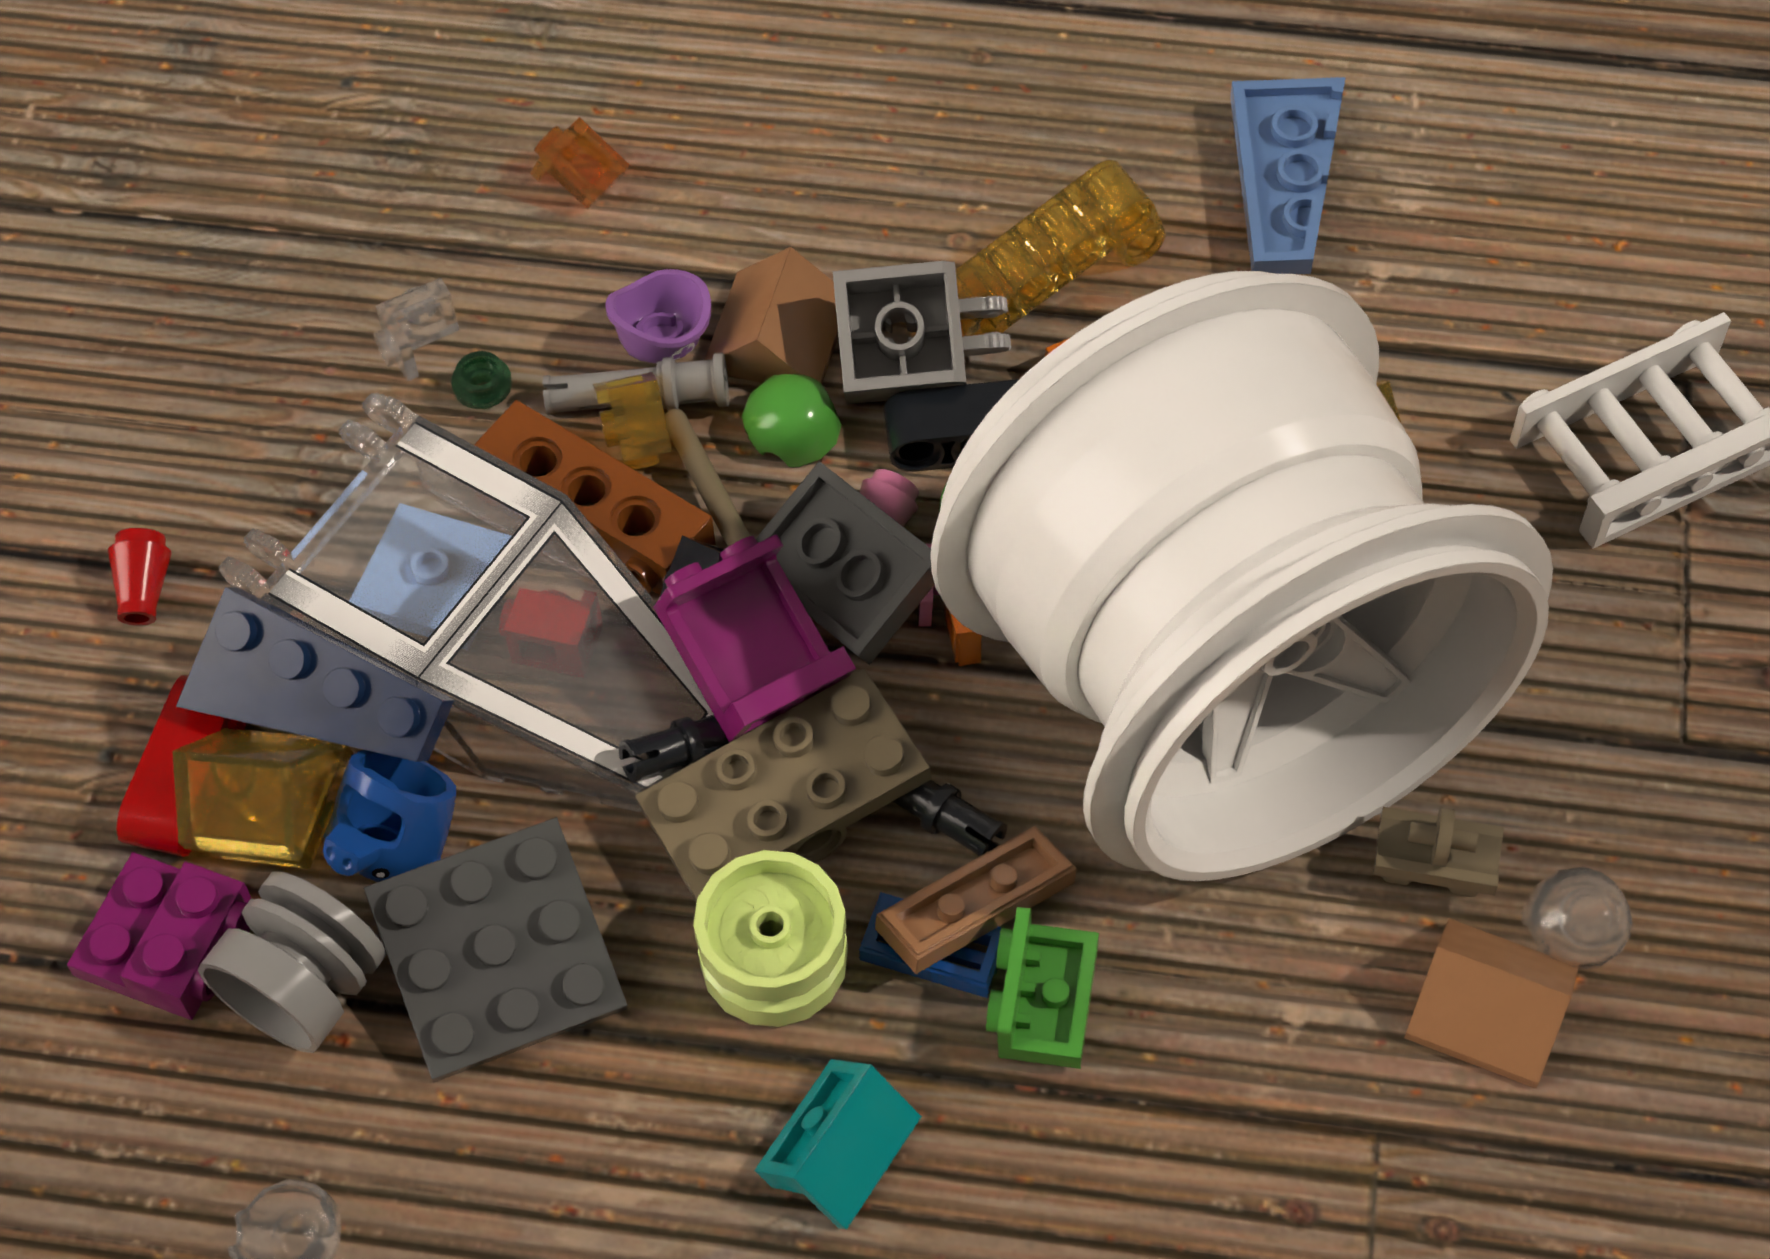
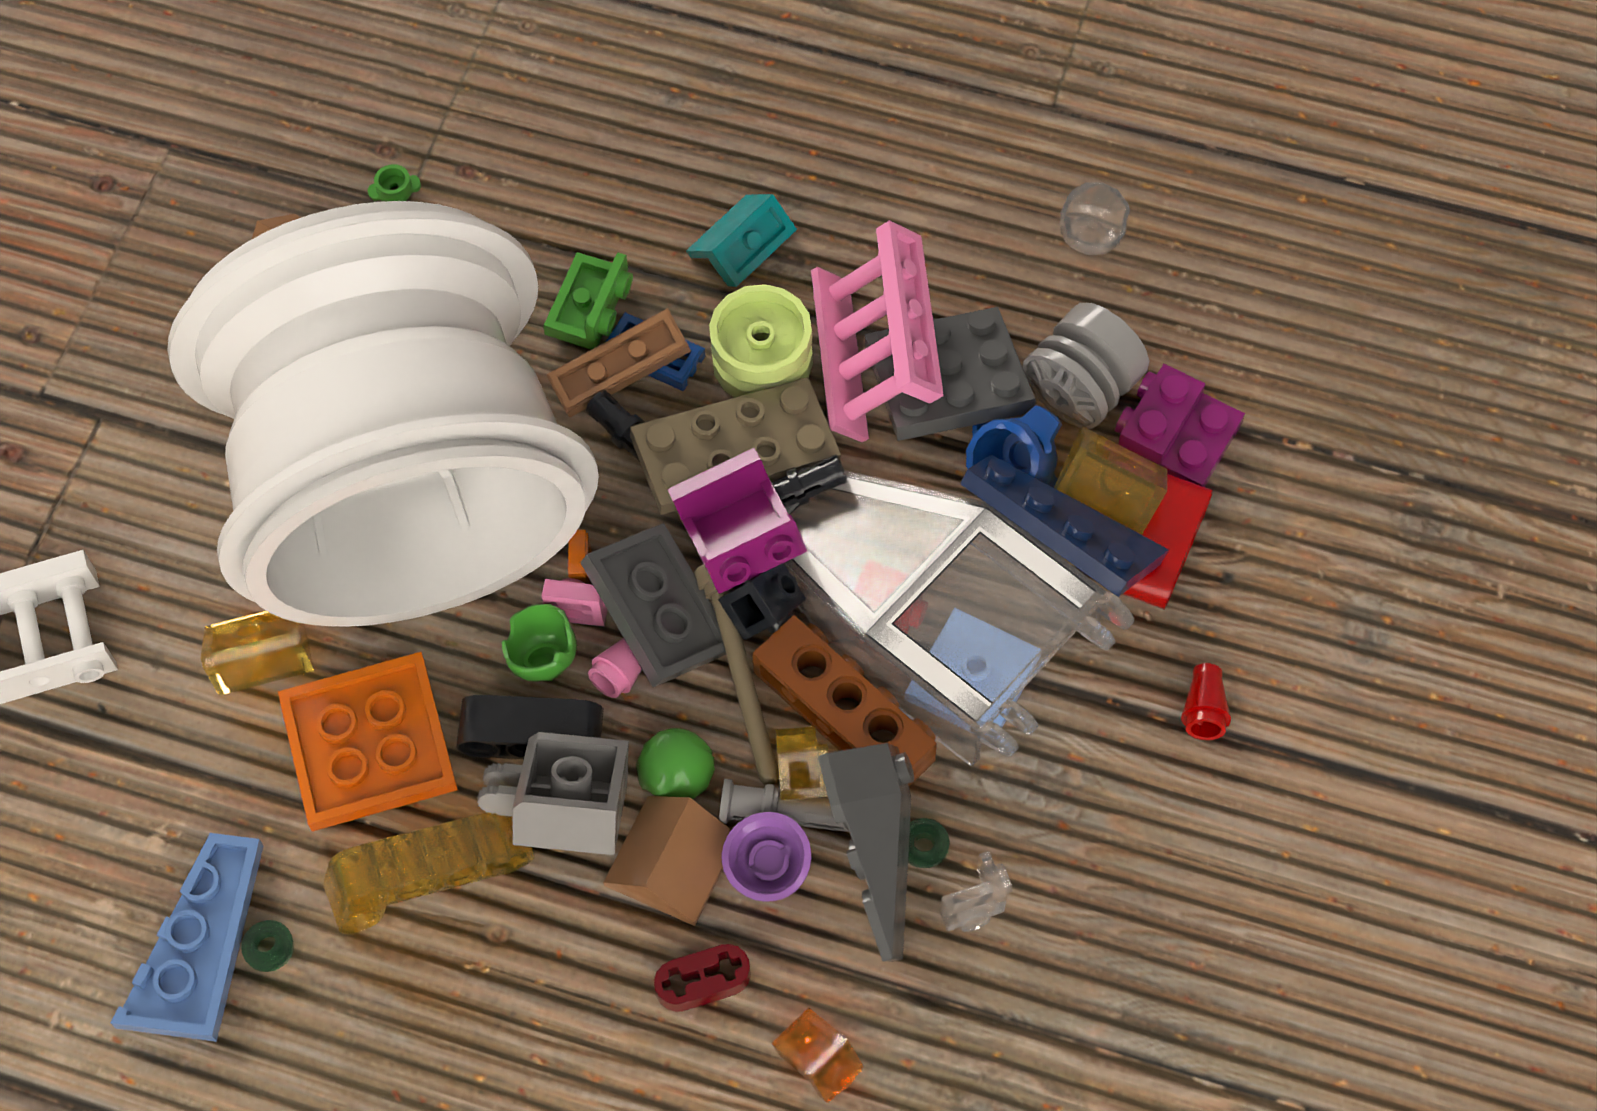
camera: 170 degrees left, 5 degrees up
(540, 337) = (873, 801): none -> dark grey wedge
(555, 967) = (909, 338): none -> bright pink fence
(717, 220) = (698, 966): none -> dark red beam
(1207, 180) = (271, 959): none -> clear green plate
(1406, 1129) = (390, 177): none -> bright green plate

